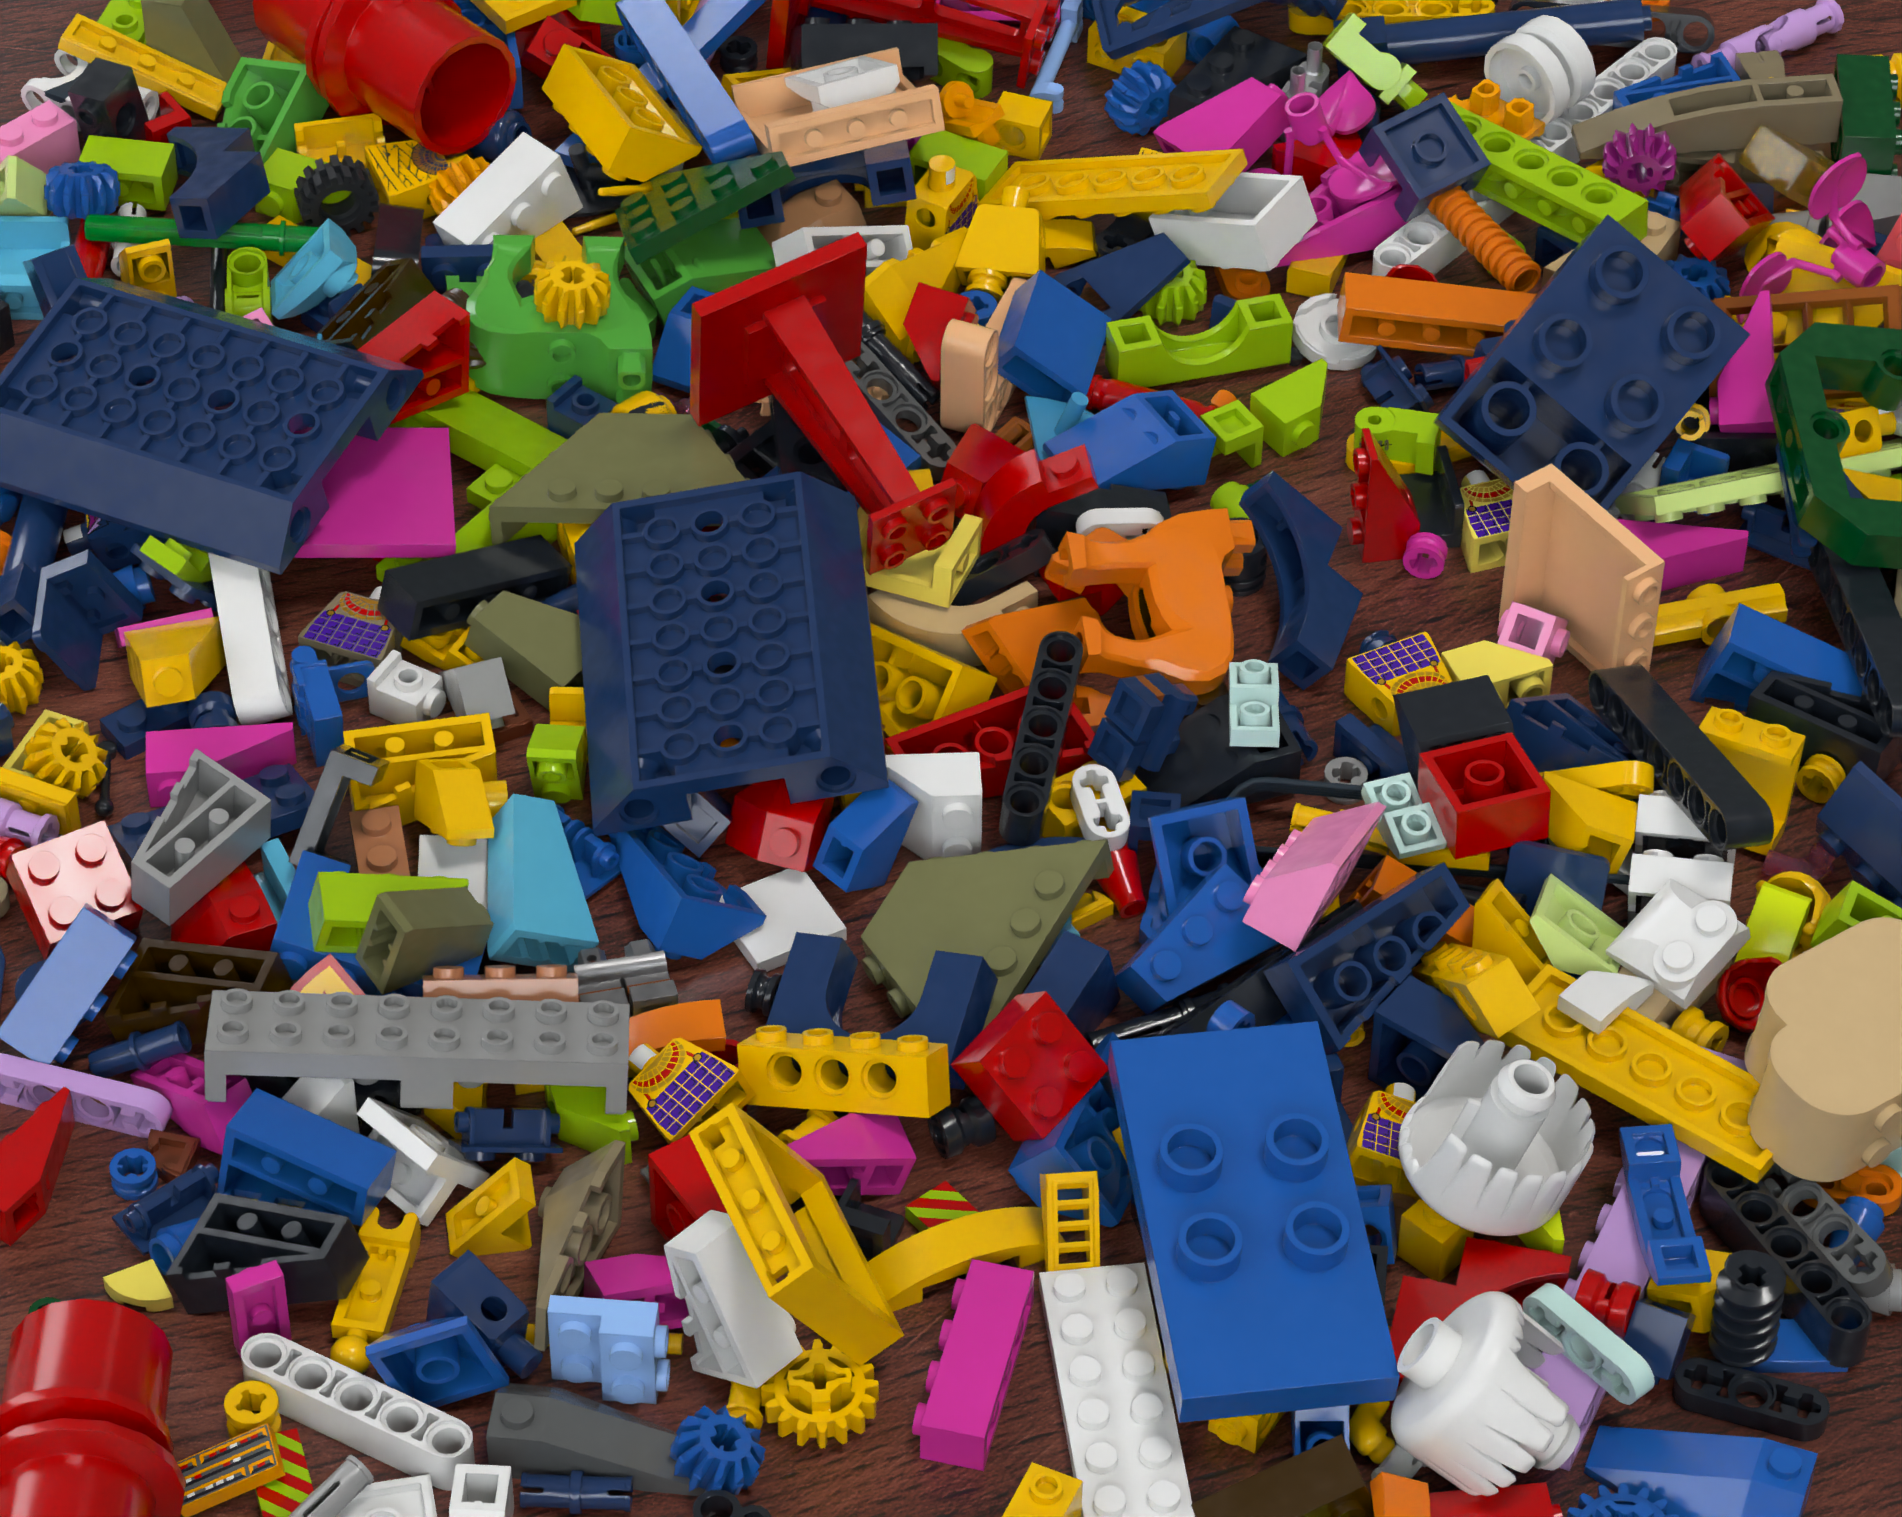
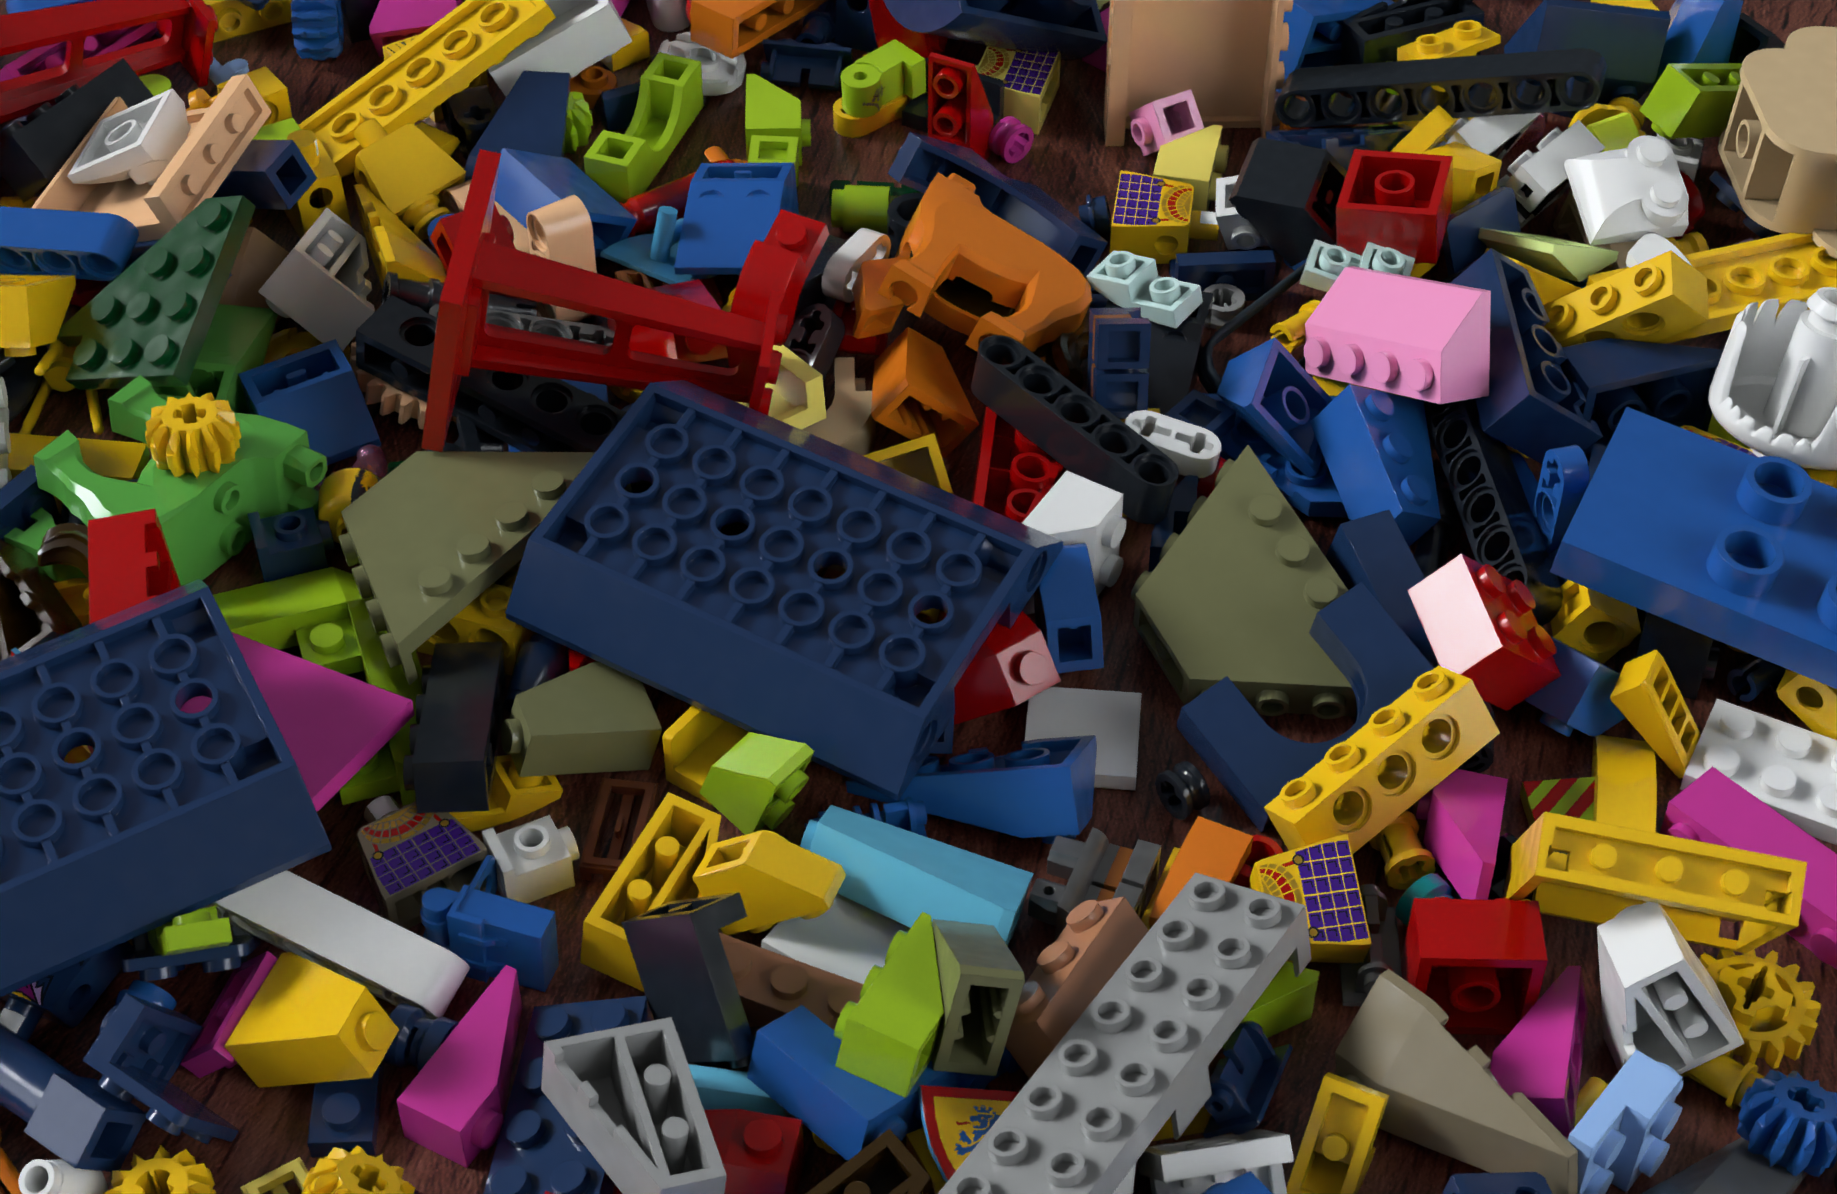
camera: 55 degrees left, 0 degrees up
(479, 690) = (604, 793): light grey slope -> none

